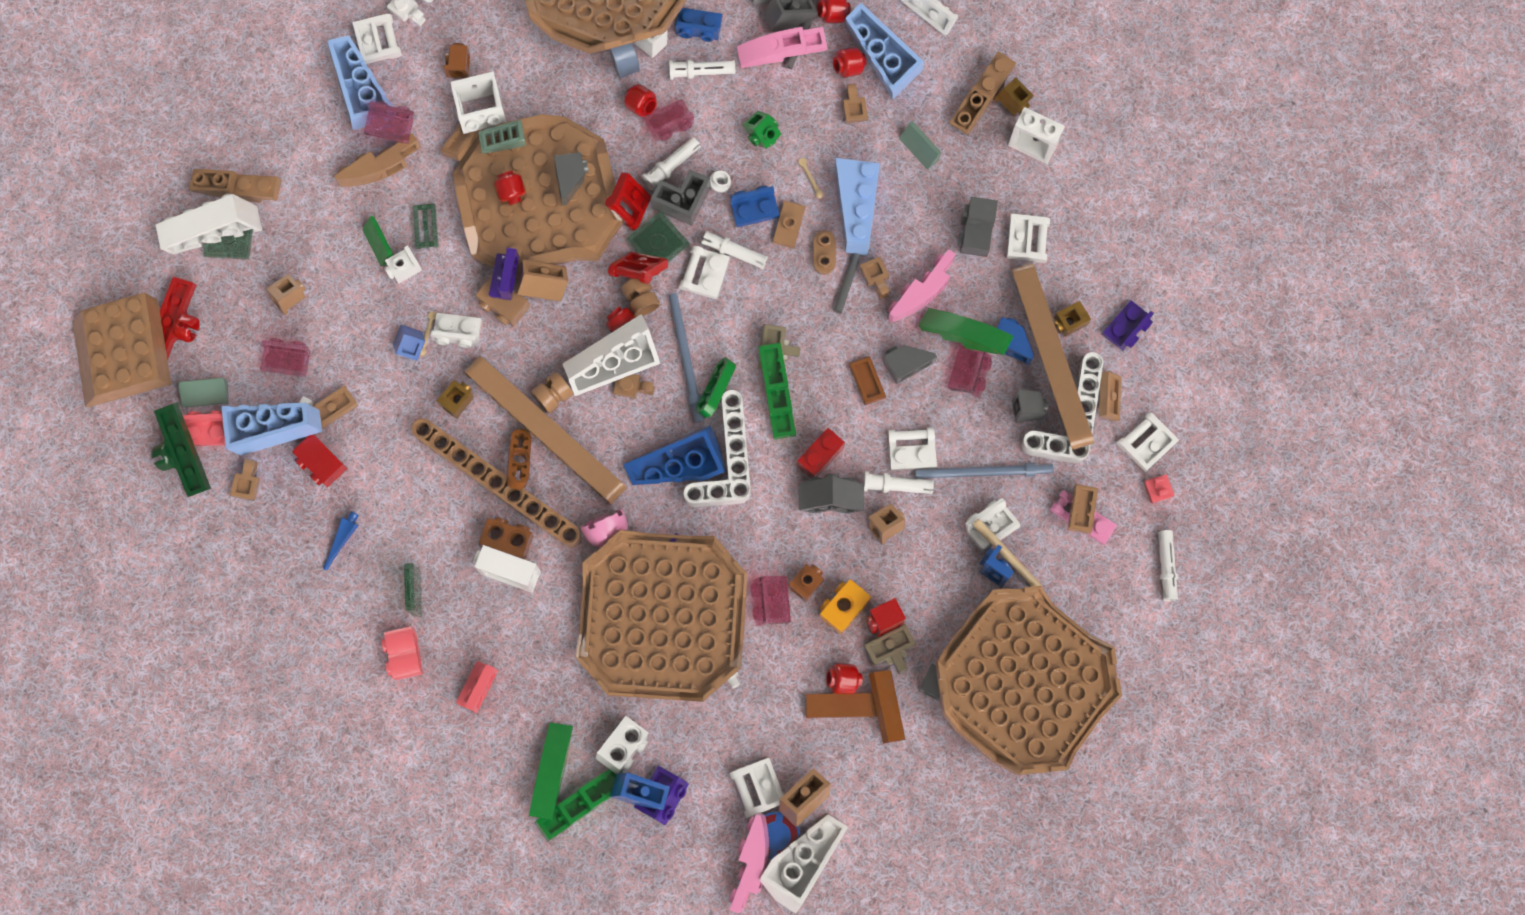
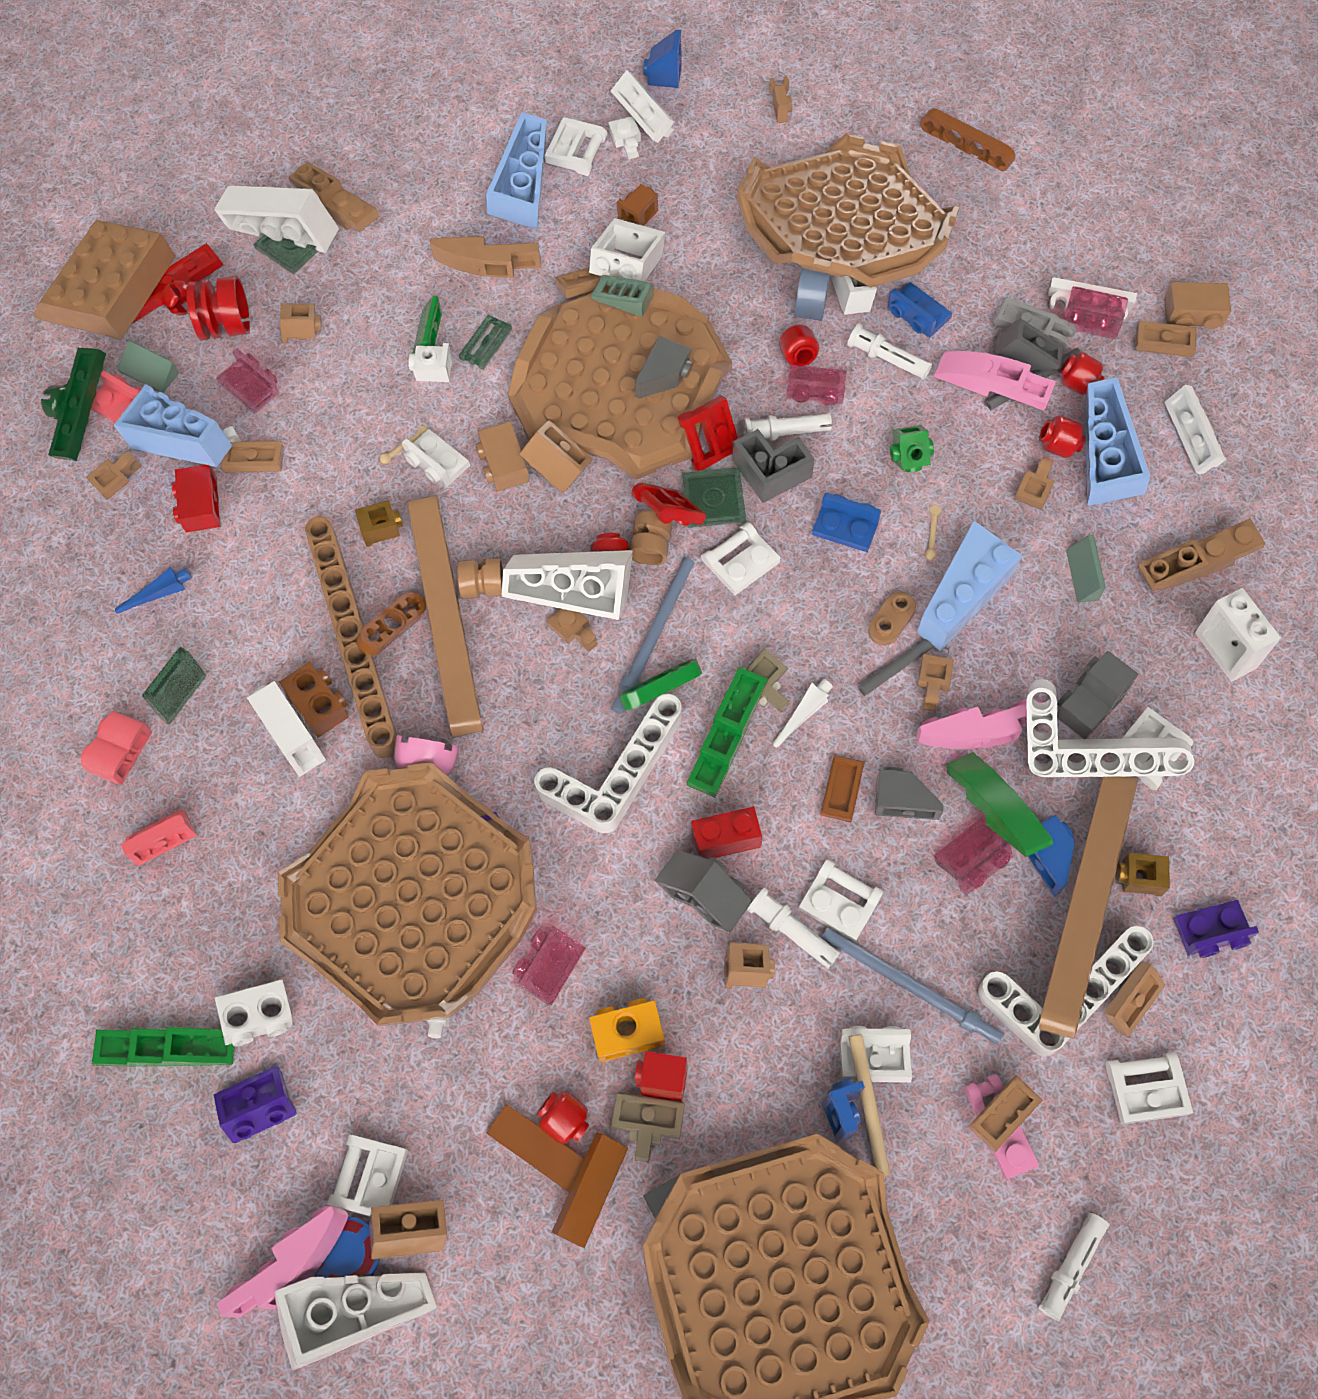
camera: 40 degrees right, 10 degrees down
(225, 319) = (213, 308): none -> red wheel
(389, 122) = (521, 216): clear pink bracket -> none
(409, 342) = (376, 439): panel -> none
(504, 275) = (521, 425): dark purple bracket -> none
(509, 187) = (591, 343): red head -> none
(551, 771) = (156, 986): green slope -> none
(639, 791) = (228, 1080): blue slope -> none
(685, 459) = (570, 740): blue wedge -> none
(720, 176) = (831, 470): white plate -> none
(726, 246) = (784, 545): white pin -> none
(789, 224) = (872, 565): medium nougat plate -> none
(805, 590) = (597, 981): dark orange brick -> none
(813, 337) = (811, 702): none -> white piece
(999, 261) = (1095, 748): none -> white beam
(1014, 97) = (1238, 575): pearl gold brick -> none
(1029, 406) = (1021, 941): dark grey slope -> none
(1159, 488) = (1126, 1158): coral tile -> none

